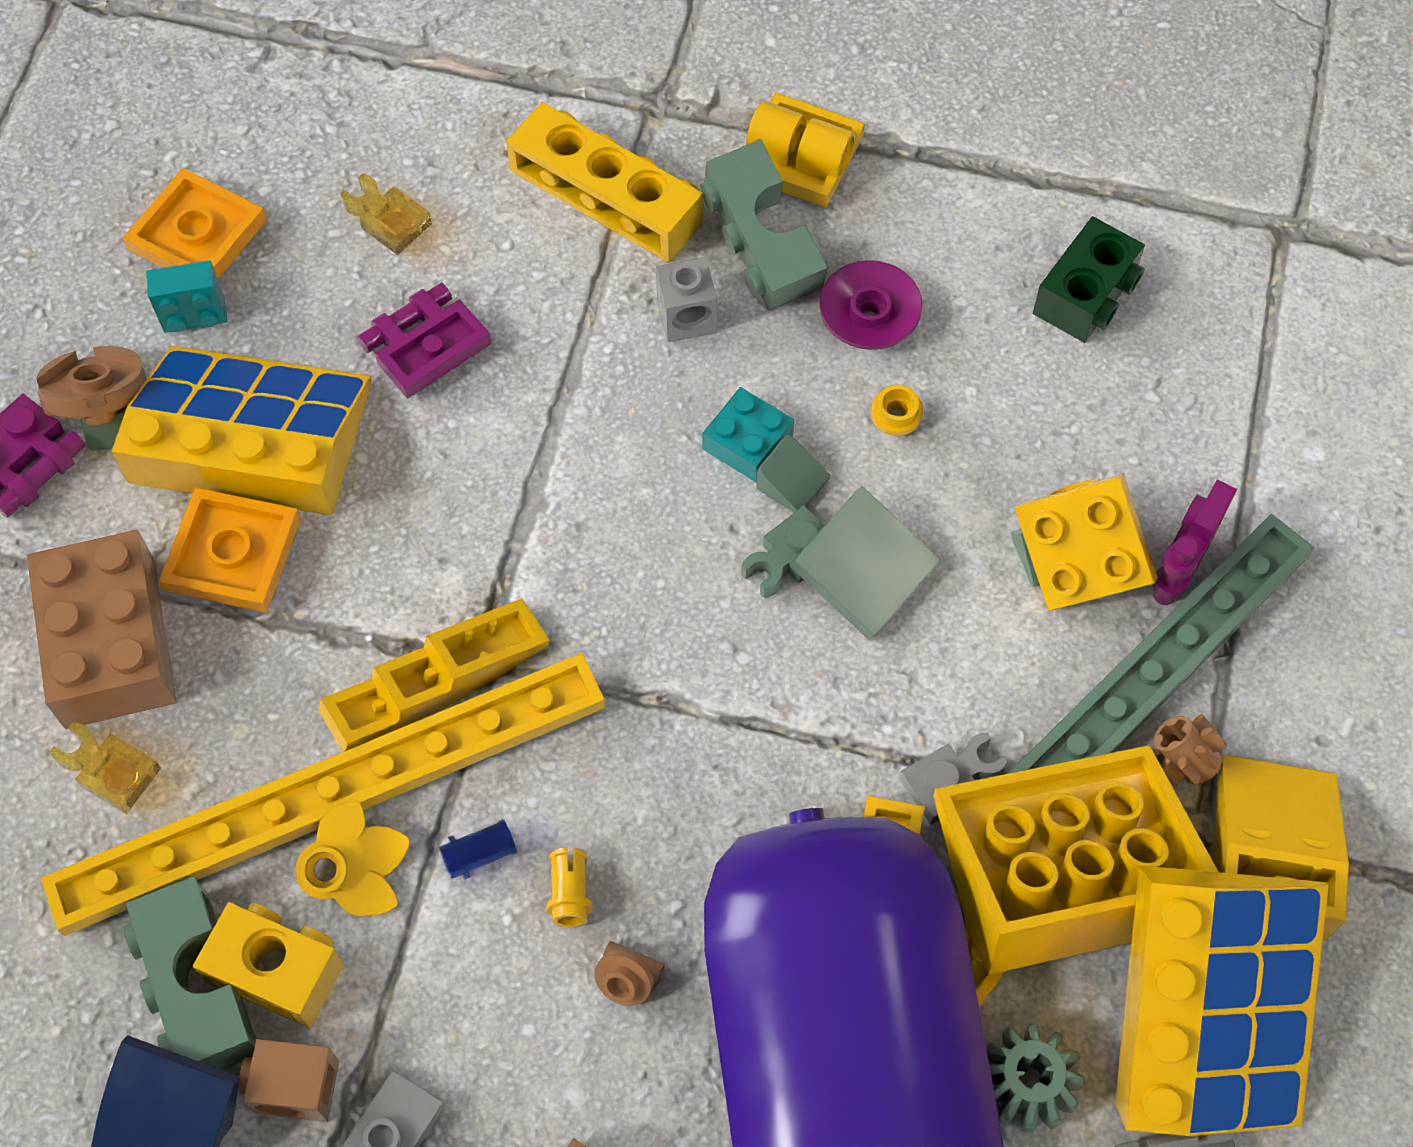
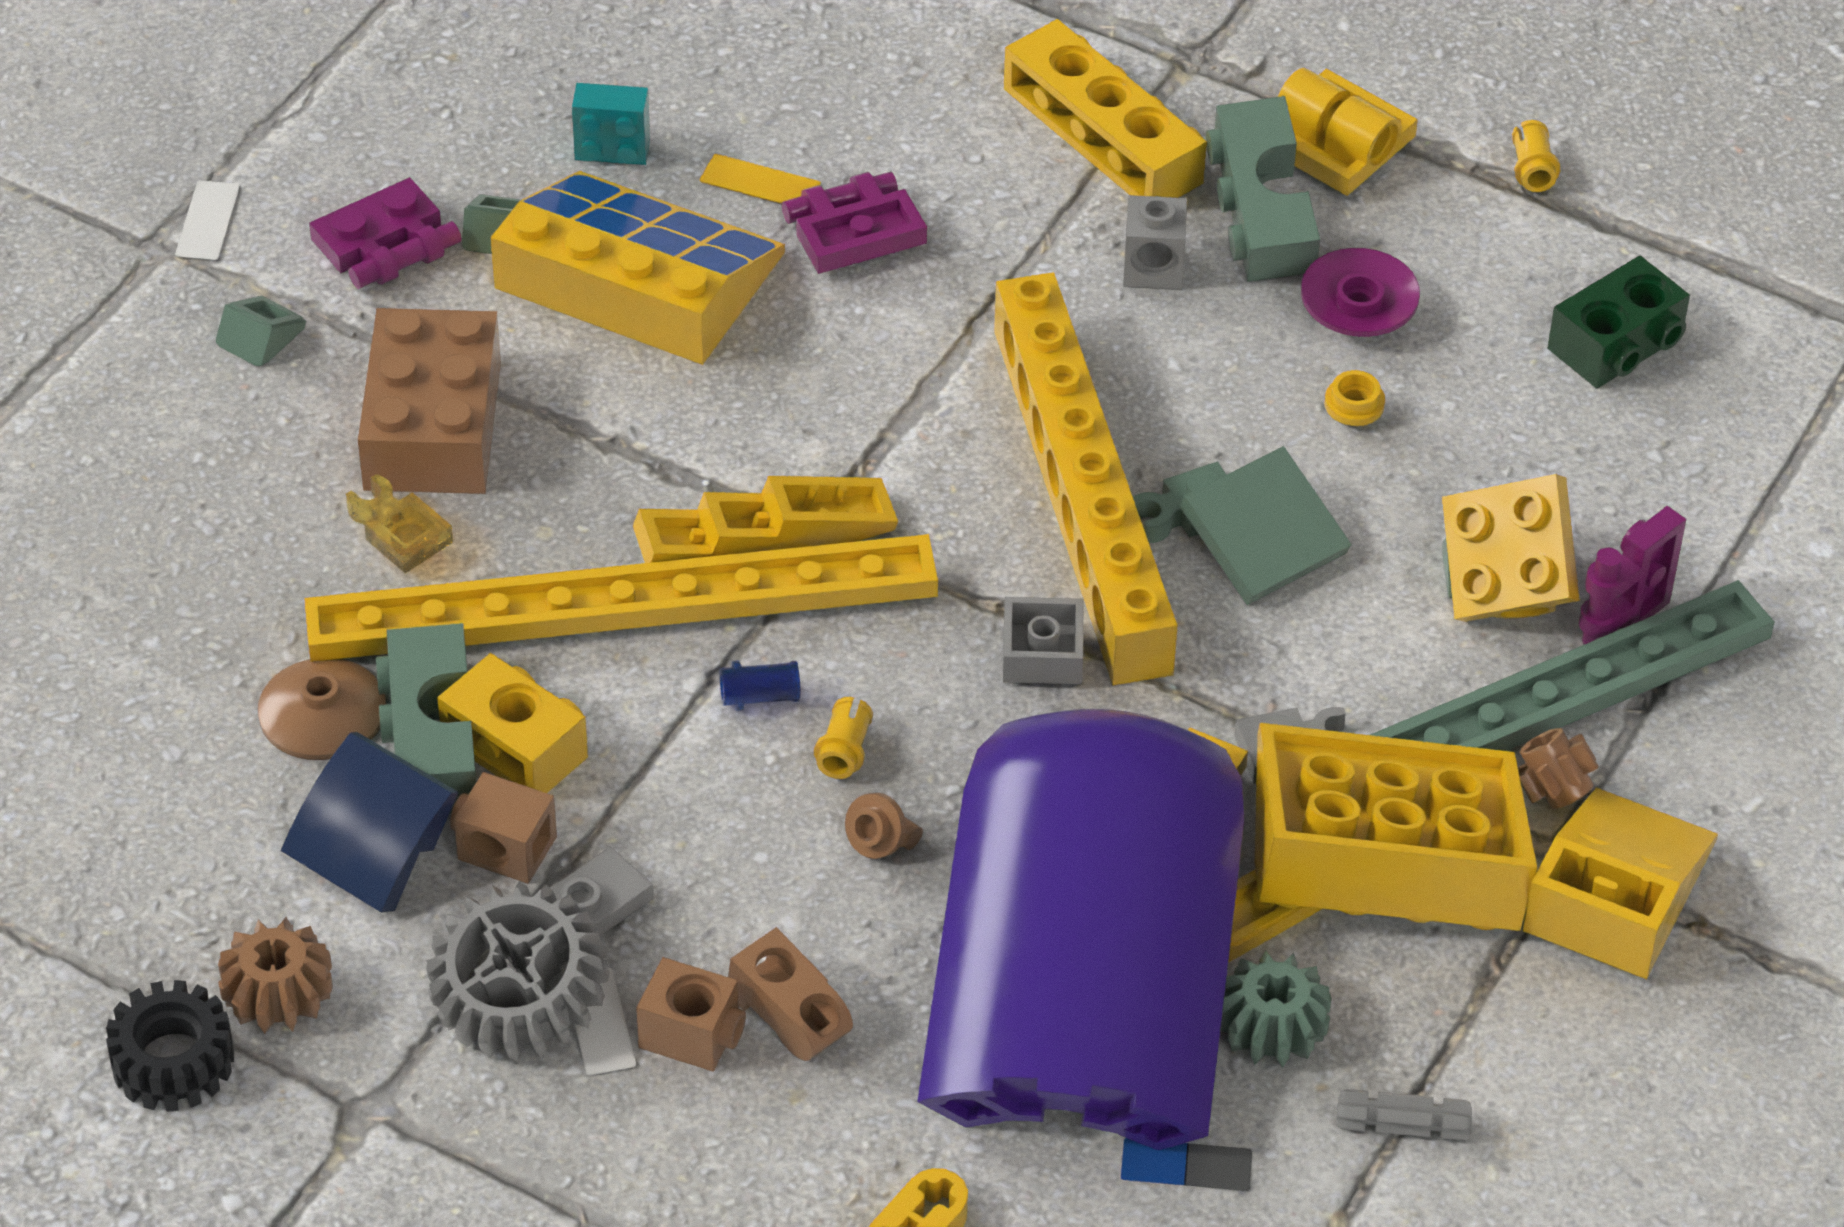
camera: 15 degrees right, 15 degrees down
(92, 385) = (484, 182): medium nougat plate -> none
(100, 1003) = (316, 706): none -> medium nougat dish
(195, 224) = (642, 53): light orange plate -> none
(230, 550) = (585, 364): light orange plate -> none
(328, 314) = (754, 179): none -> yellow sticker
(361, 860) = (635, 660): yellow plate -> none
(388, 218) = (852, 101): clear yellow plate -> none
(700, 559) = (1085, 480): none -> yellow brick
(712, 734) = (1043, 640): none -> light grey piece
(746, 432) = (1180, 385): teal piece -> none
(791, 475) = (1213, 430): sand green slope -> none
(972, 142) = (1536, 164): none -> yellow pin
(1219, 1002) = (1495, 966): slope -> none

